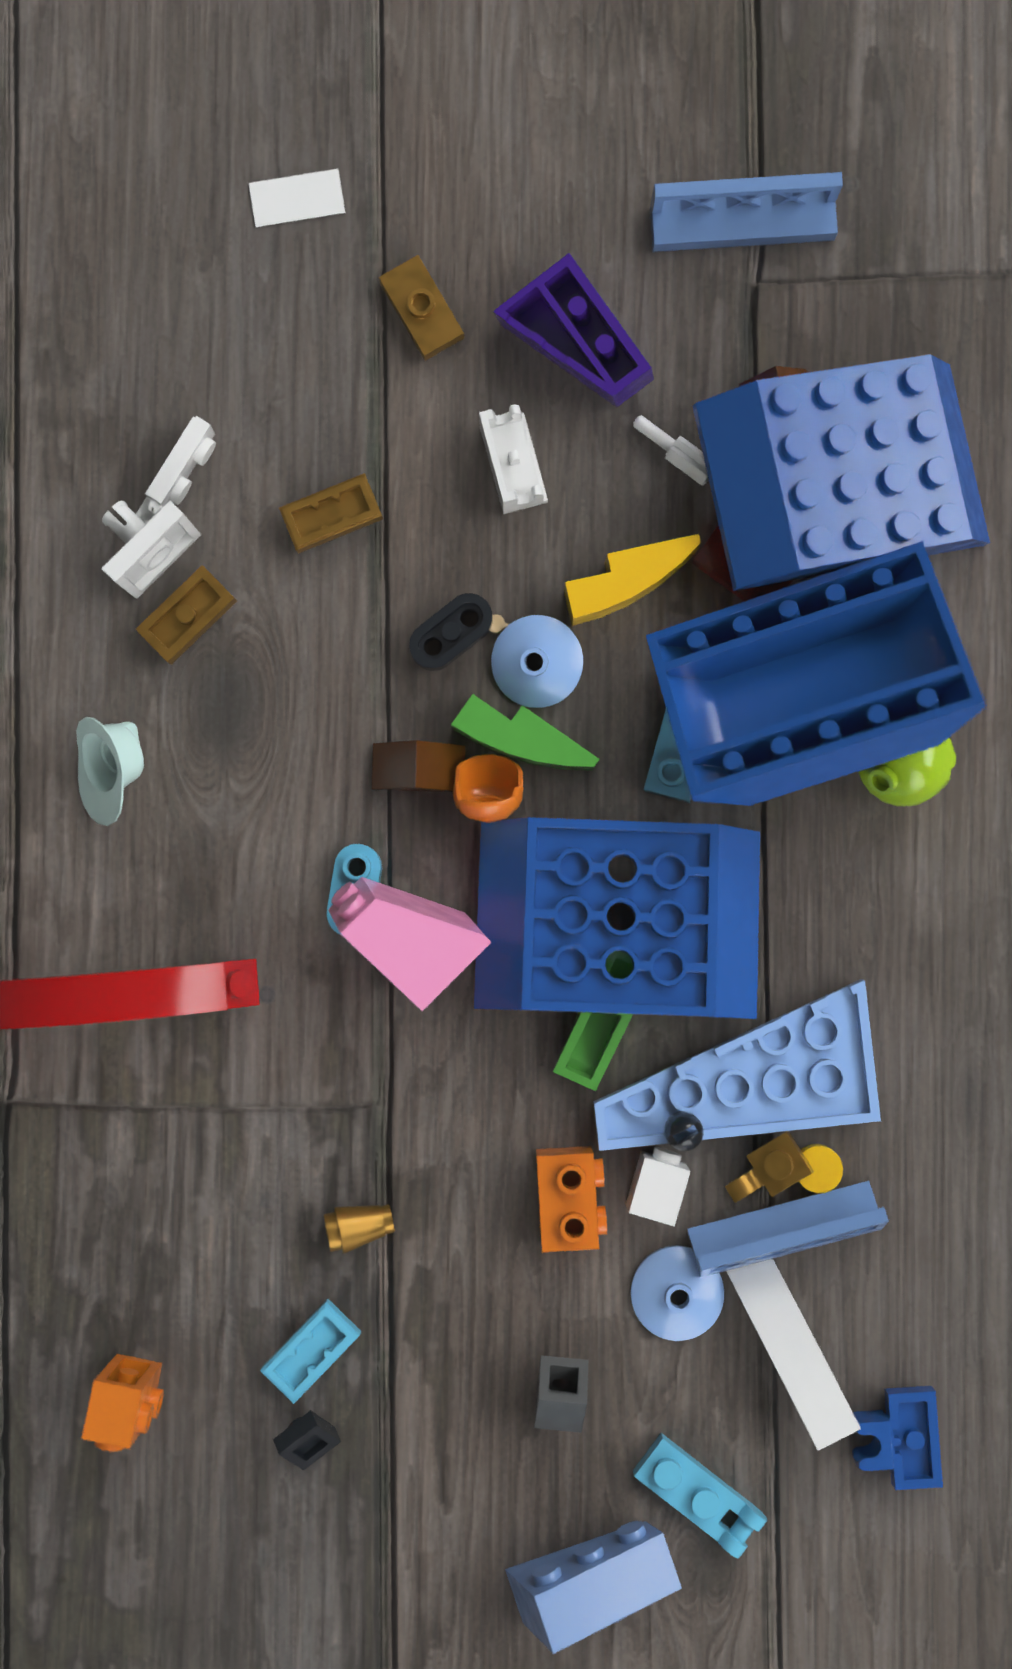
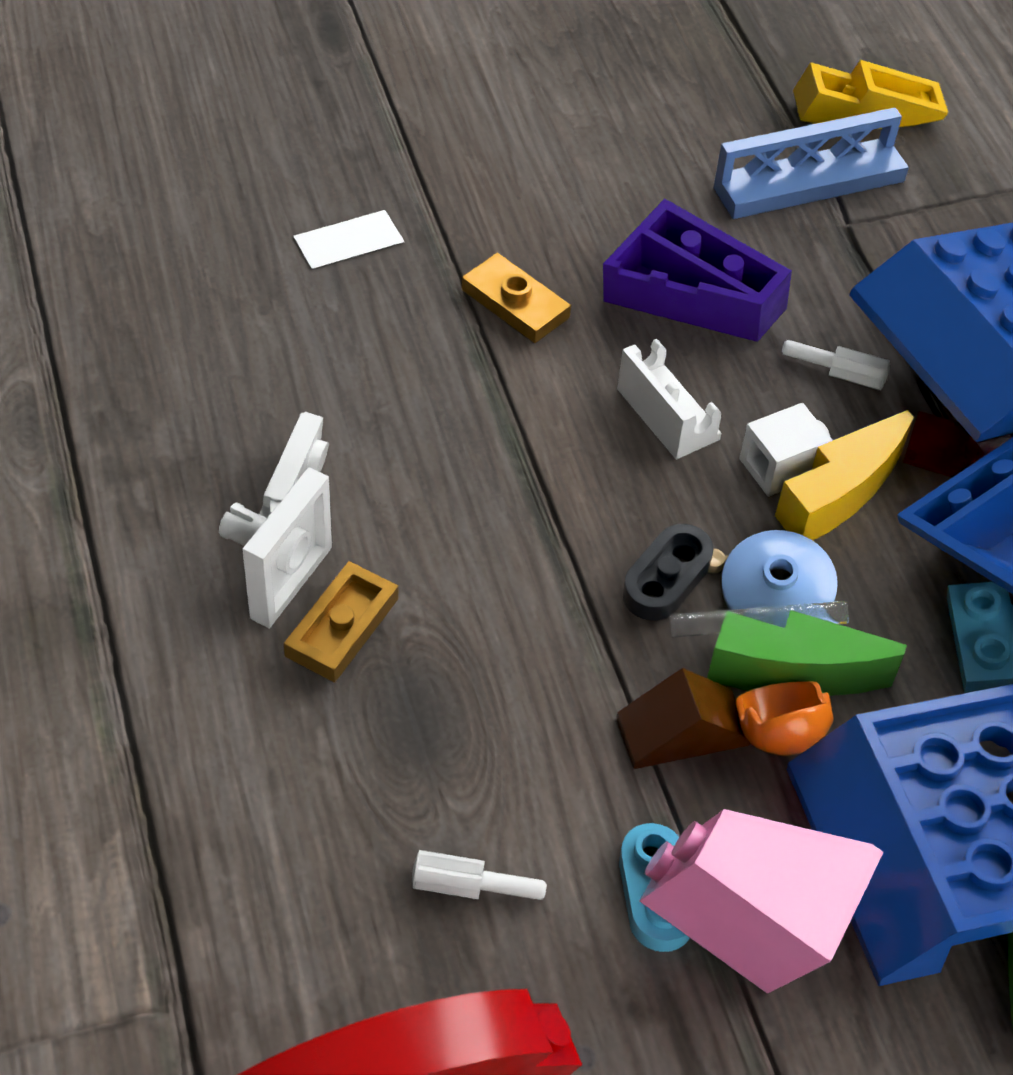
camera: 25 degrees left, 35 degrees down
(106, 764) = (283, 804): light aqua piece -> none
(224, 851) = (467, 877): none -> white axle
(331, 513) = (483, 488): pearl gold plate -> none
(505, 694) = (711, 622): none -> clear bar
(590, 536) = (782, 446): none -> white brick
(839, 131) = (832, 94): none -> yellow slope

